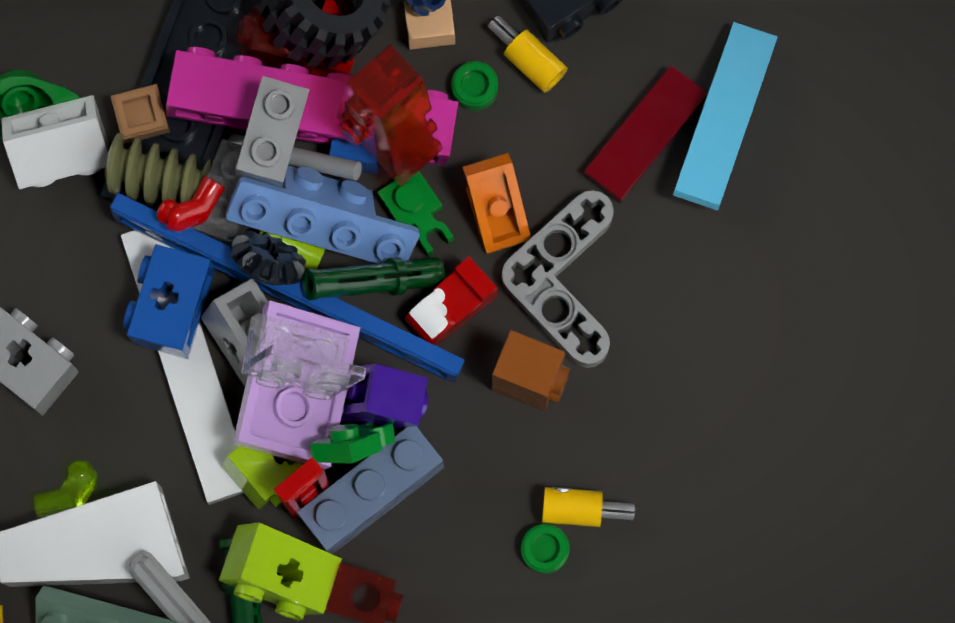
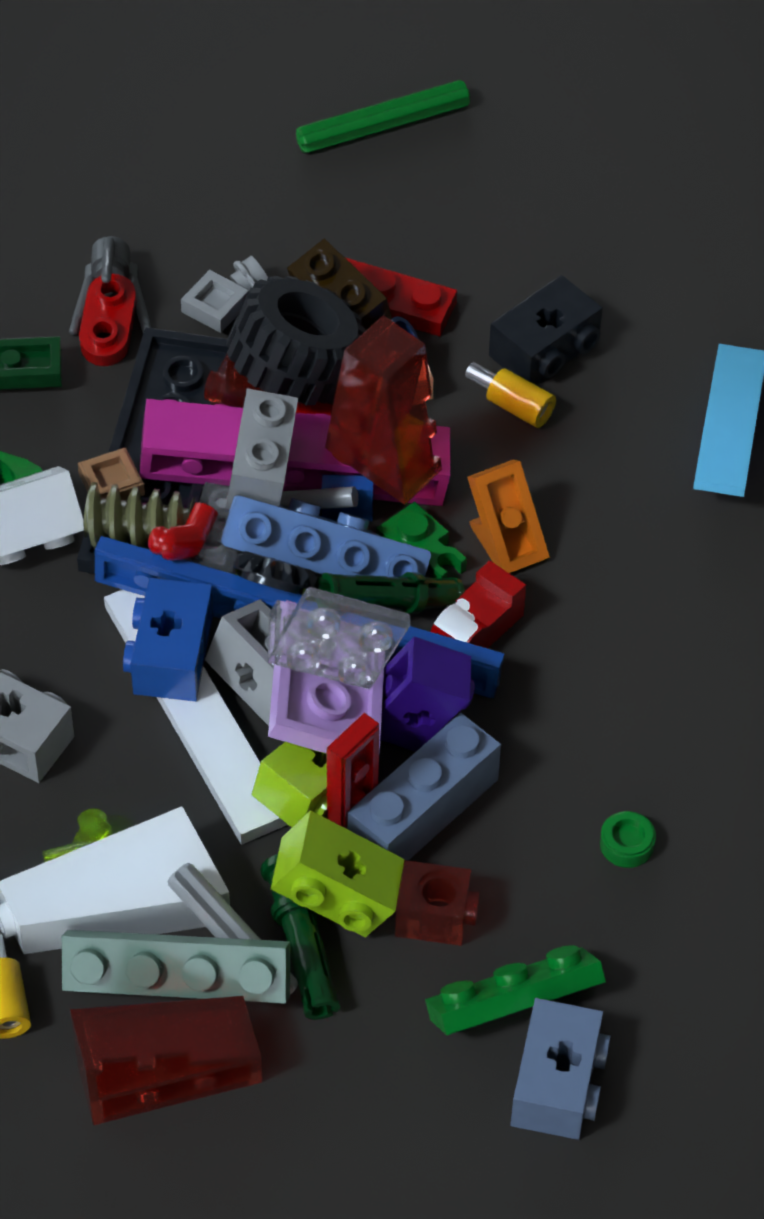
camera: 10 degrees left, 25 degrees down
(352, 442) = (405, 719): green plate -> none
(474, 86) = (466, 428): green tile -> none
(530, 372) = (578, 656): dark orange brick -> none
(546, 284) = (577, 593): light grey beam -> none
(581, 507) = (659, 790): yellow piece -> none
(645, 134) = (649, 451): dark red tile -> none

